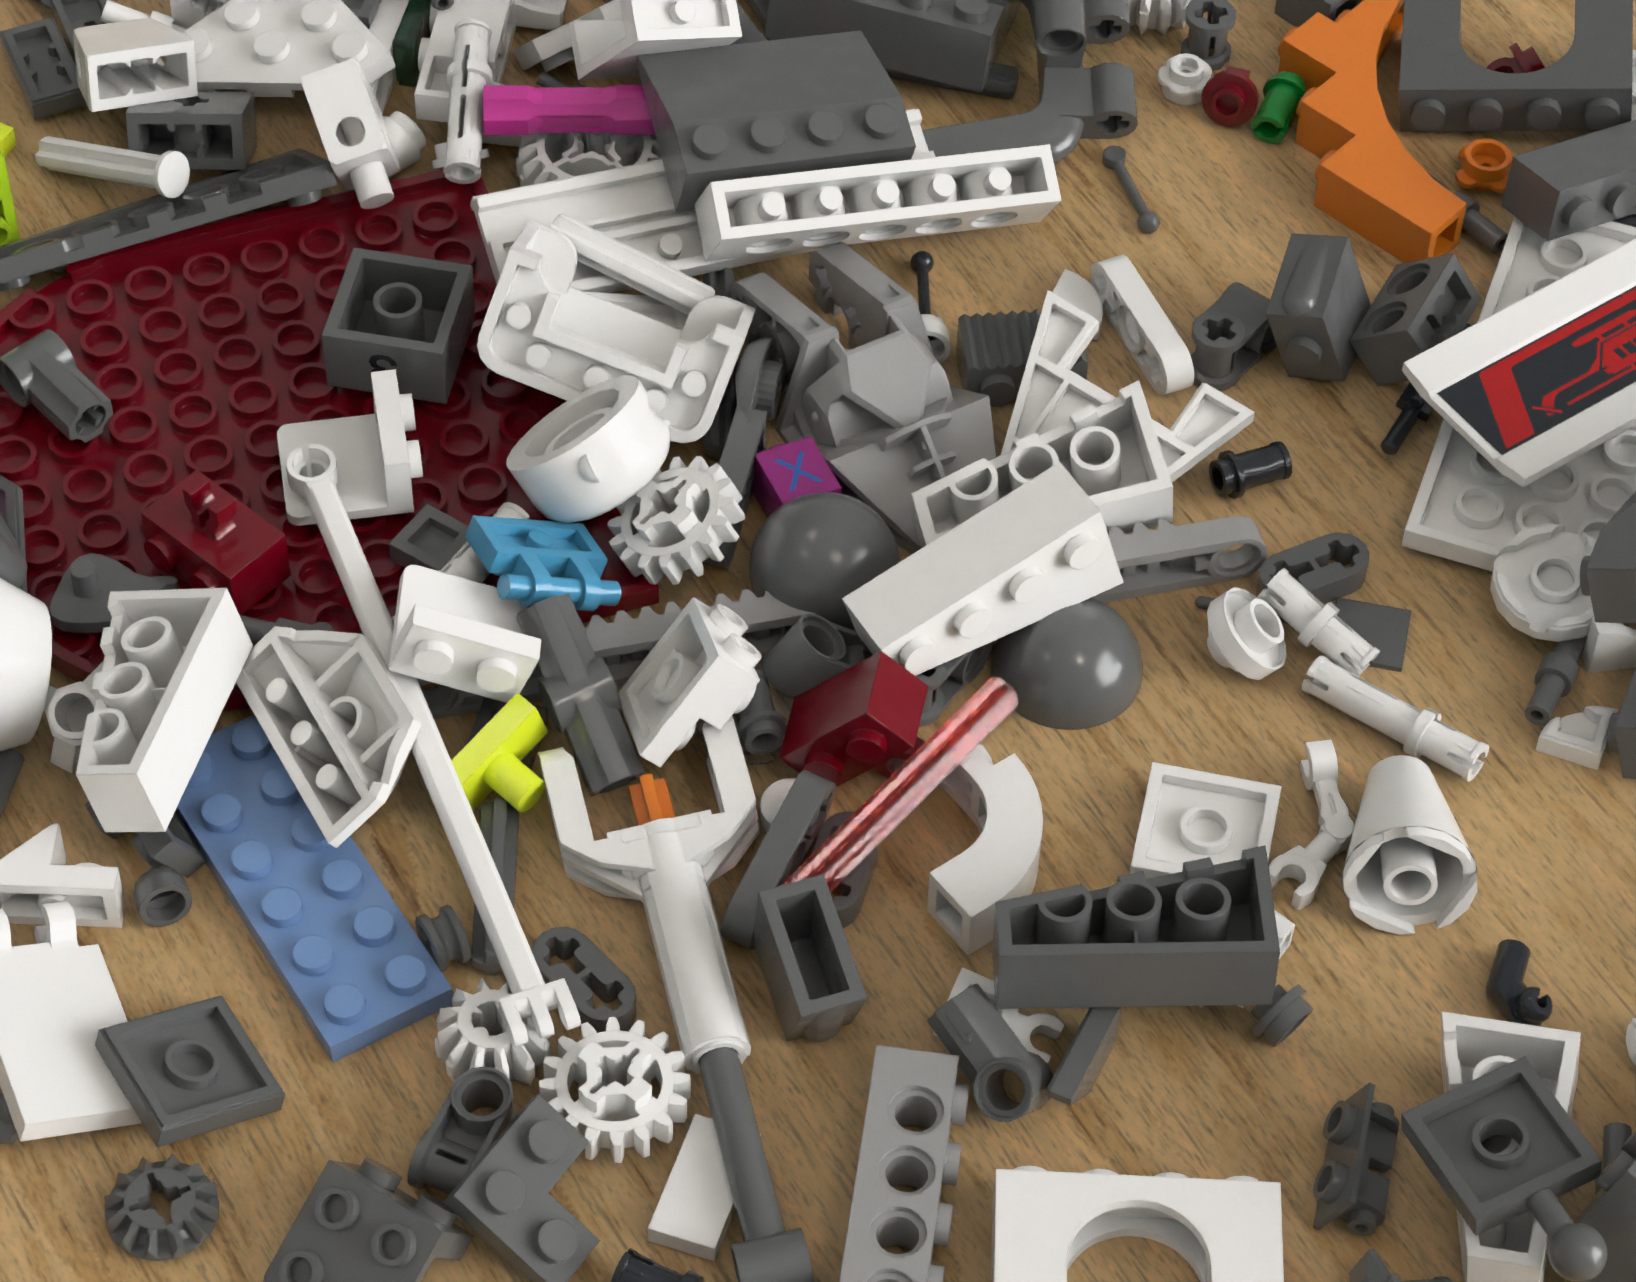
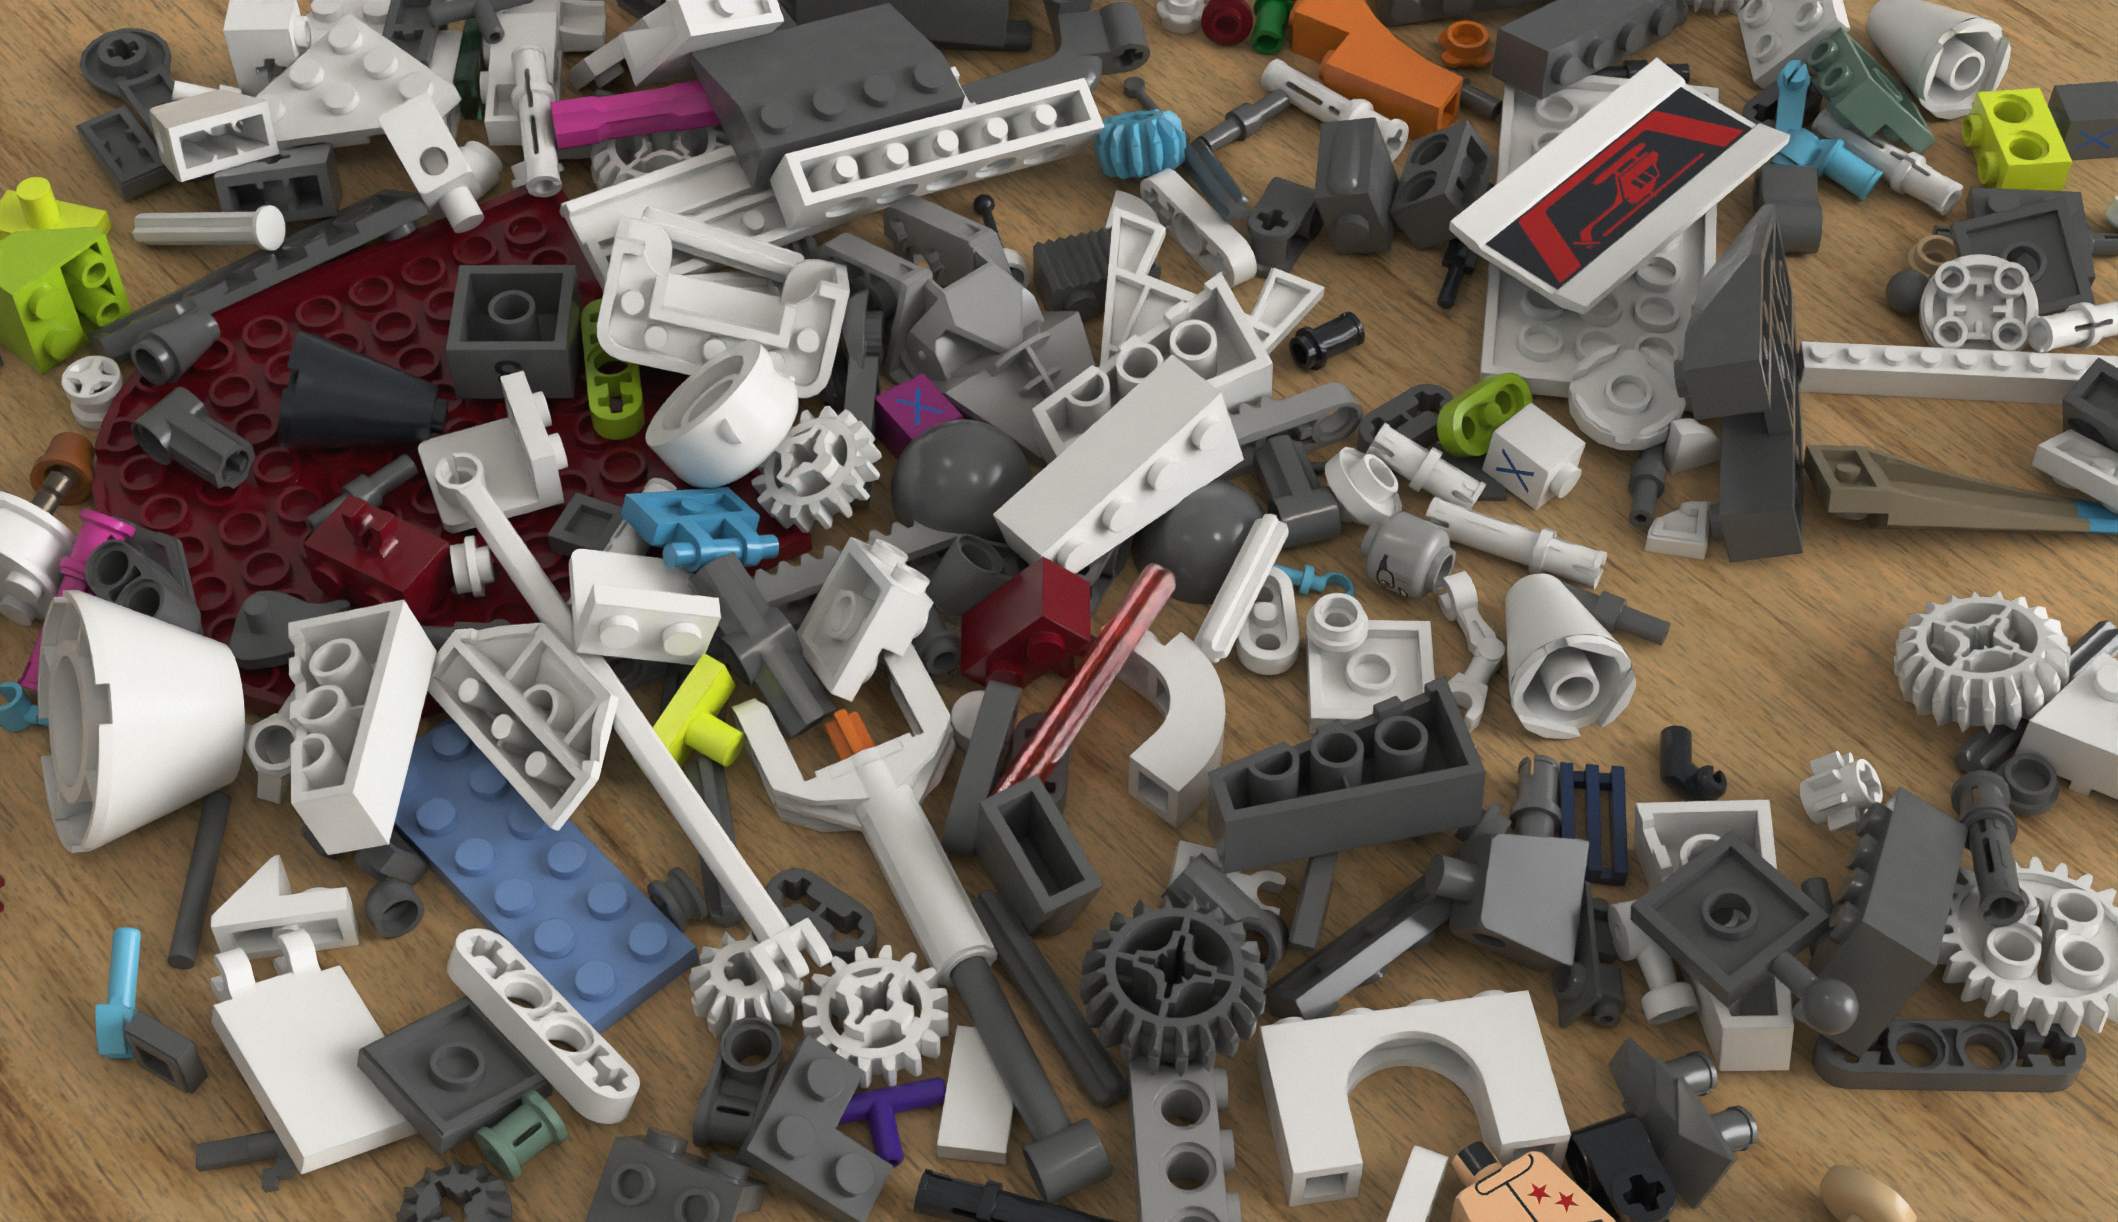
camera: 10 degrees left, 0 degrees up
(53, 285) = (174, 347): none -> dark grey cone
(219, 466) = (368, 488): none -> dark grey bar
(221, 371) = (353, 400): none -> black cone
(265, 1142) = (498, 1144): none -> sand green bush
(305, 564) = (471, 566): none -> white plate
(320, 1101) = (591, 1080): none -> white beam
(477, 396) = (603, 386): none -> lime beam
(599, 1183) = (880, 1108): none -> dark purple piece
(794, 1105) = (1050, 1002): none -> dark grey axle
(935, 1141) = (1205, 1011): none -> dark grey gear
(1089, 717) = (1241, 587): none -> white axle
(1100, 222) = (1140, 143): none -> medium azure gear
(1109, 758) = (1271, 626): none -> white plate
(1166, 721) = (1307, 580): none -> medium azure hand
(1169, 275) = (1215, 181): none -> dark grey axle
(1169, 1094) = (1359, 954): none -> dark grey plate
(1174, 640) = (1296, 493): none -> dark grey piece
(1180, 758) = (1341, 611): none -> white plate
(1221, 214) = (1245, 120): none -> dark grey bar
(1275, 713) = (1408, 555): none -> light grey head
(1280, 179) = (1281, 76): none -> white pin
(1290, 1083) = (1515, 895): none -> torso
(1340, 1010) = (1536, 807): none -> flat silver pin
(1392, 580) = (1473, 416): none -> lime plate
(1410, 983) = (1593, 782): none -> dark blue tile
(1428, 1218) = (1667, 998): none -> white leg
(1438, 630) = (1534, 457): none -> white brick
(1481, 810) = (1614, 614): none -> dark grey bar

